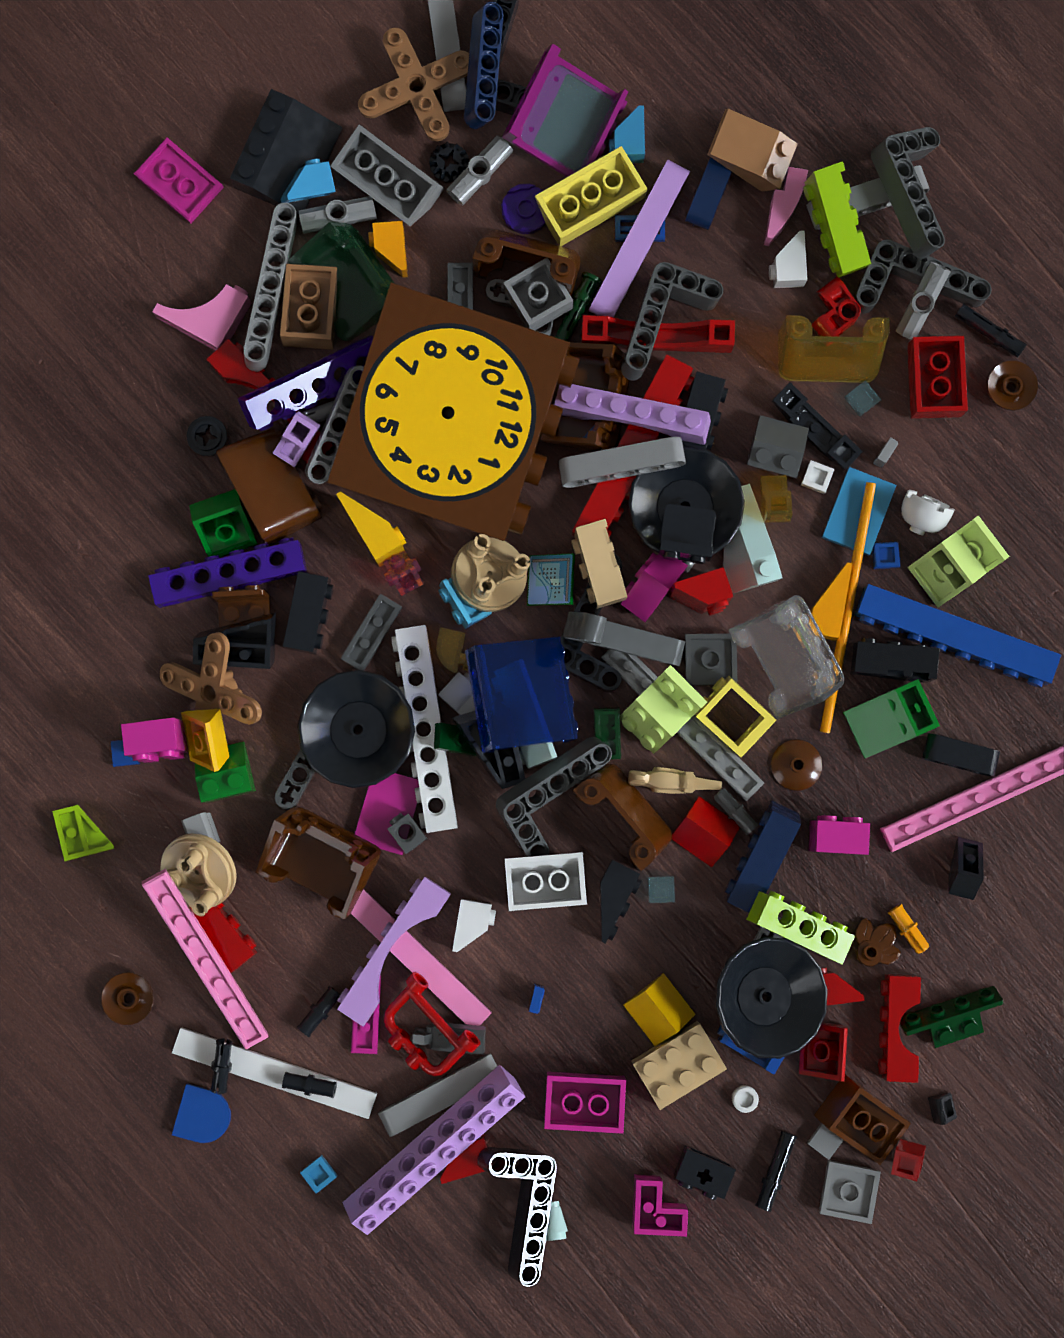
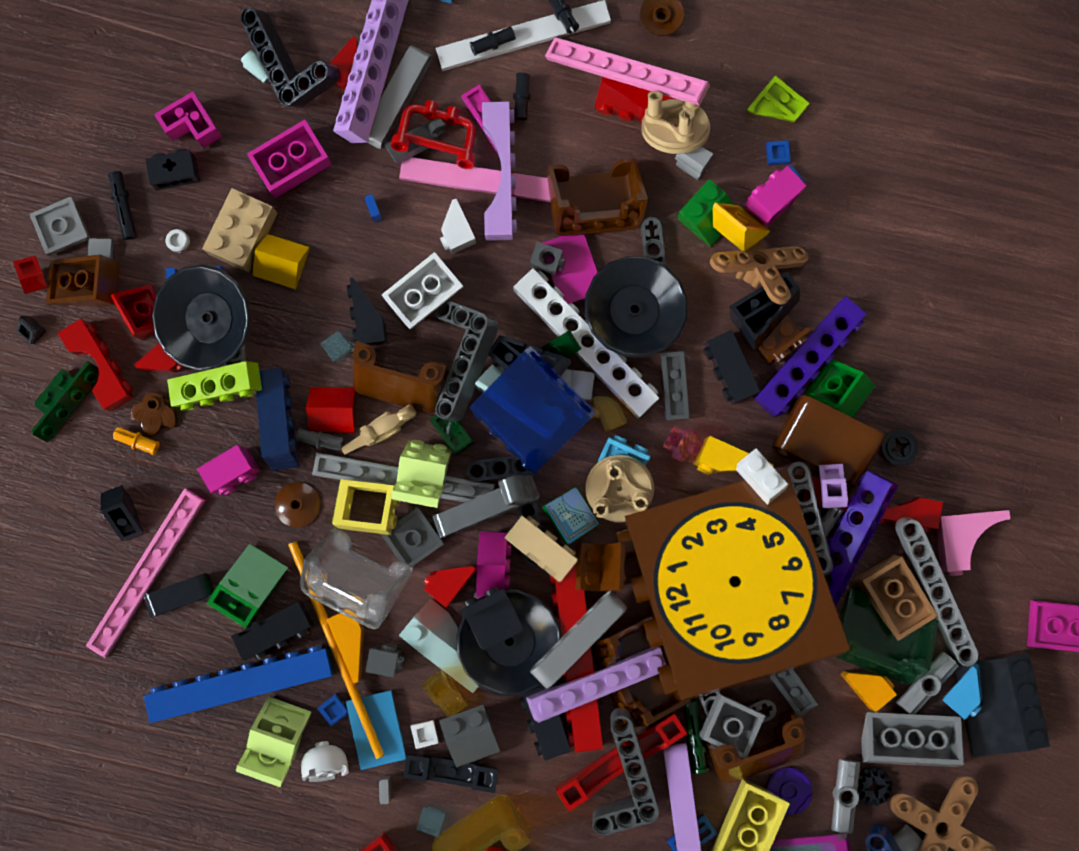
camera: 145 degrees right, 0 degrees up
(115, 786) = (778, 153): none -> blue tile
(356, 488) = (761, 476): none -> white brick
(557, 512) = (600, 567): none -> reddish brown bracket
(809, 564) = (385, 660): none -> dark grey brick

